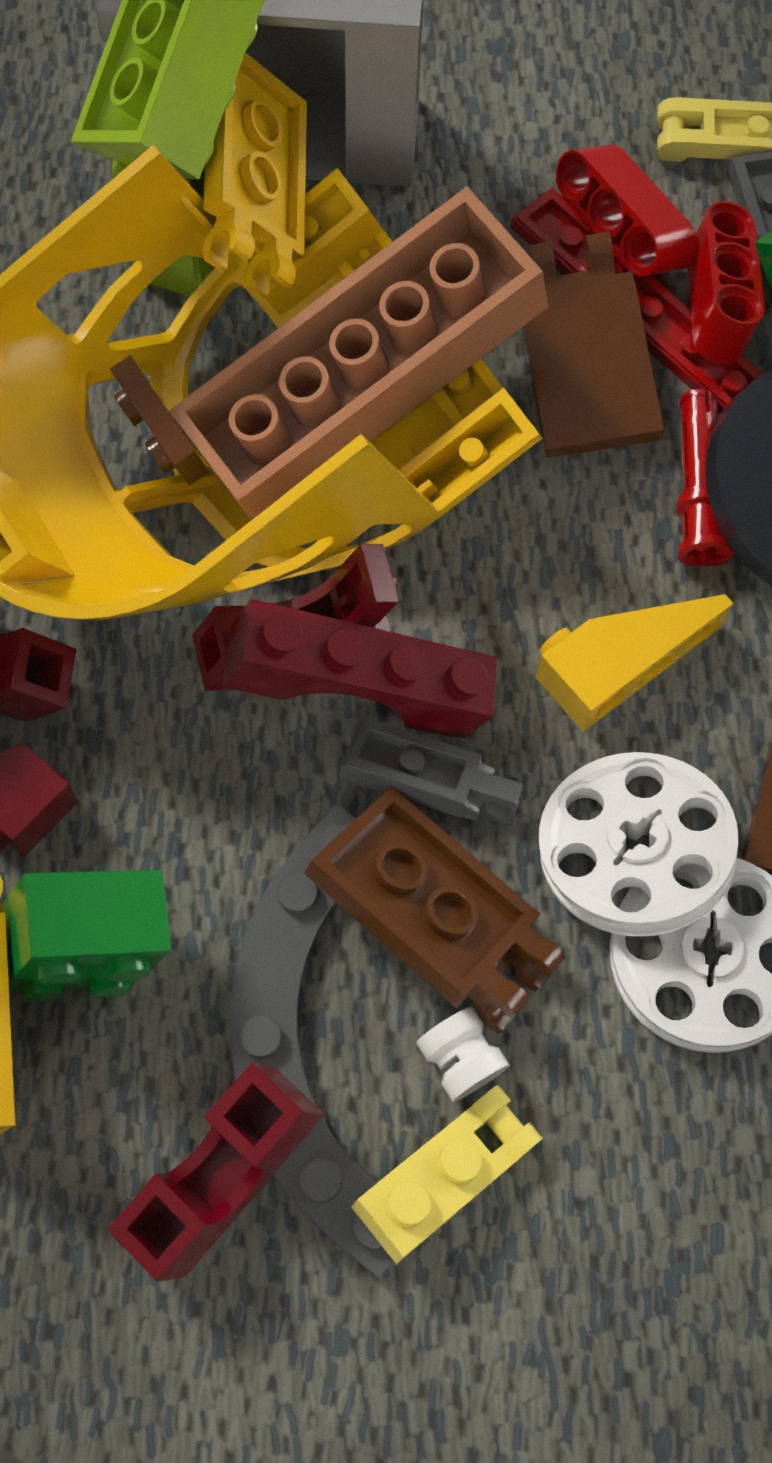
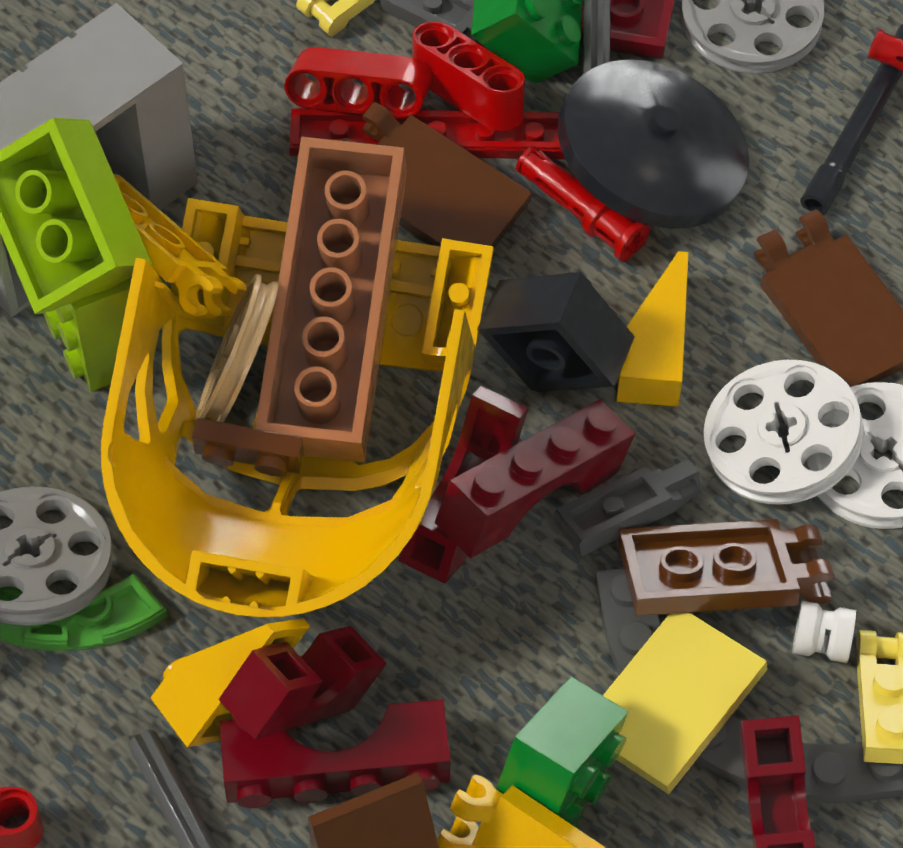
camera: 45 degrees left, 10 degrees down
(229, 330) = (237, 350): none -> tan wedge
(258, 979) = (680, 696): none -> light yellow tile
(525, 563) = (556, 332): none -> black brick

